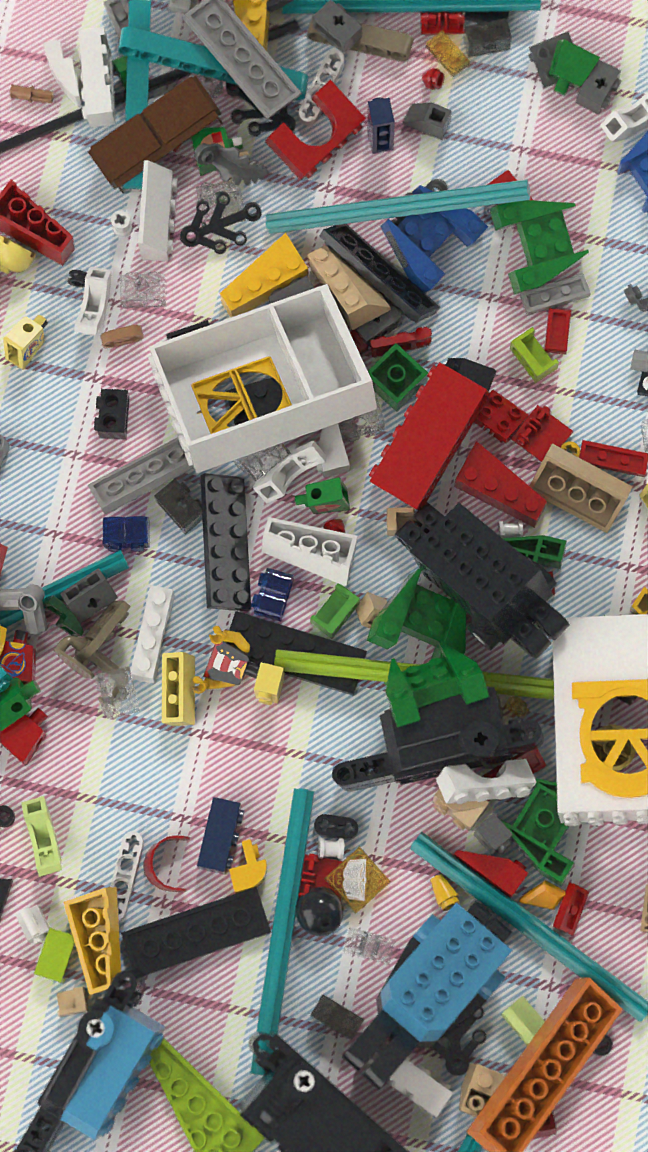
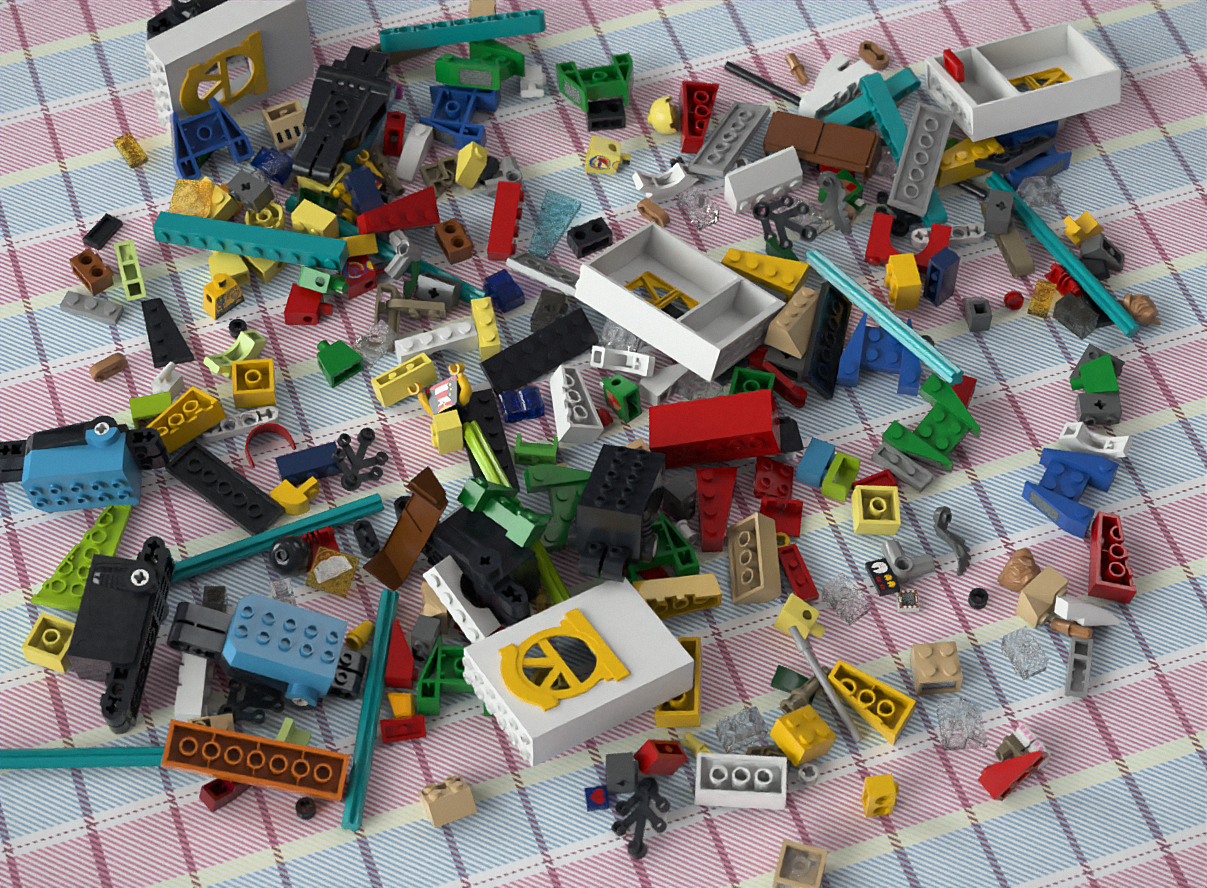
camera: 55 degrees right, 20 degrees down
(31, 551) = (453, 241): none -> dark orange brick
(46, 483) = (505, 221): none -> red wedge
(60, 13) = (872, 56): none -> medium nougat beam
(68, 435) = (553, 221): none -> clear light blue wing
(84, 211) = (729, 139): none -> light grey plate
(90, 837) = (254, 383): none -> yellow brick
(110, 741) = (338, 362): none -> green torso
(161, 574) = (486, 327): none -> light yellow brick
(245, 787) = (351, 479): none -> black plant
(248, 253) = (773, 249): none -> dark green slope
(330, 848) = (346, 540): white bush -> none
(358, 162) = (903, 282): none -> yellow brick
(384, 787) = (410, 532): none -> reddish brown piece
(482, 508) = (679, 499): none -> dark grey brick
(510, 370) = (815, 462): none -> dark azure brick
(578, 575) = (680, 594): none -> yellow wedge
(593, 348) = (875, 510): none -> light yellow brick

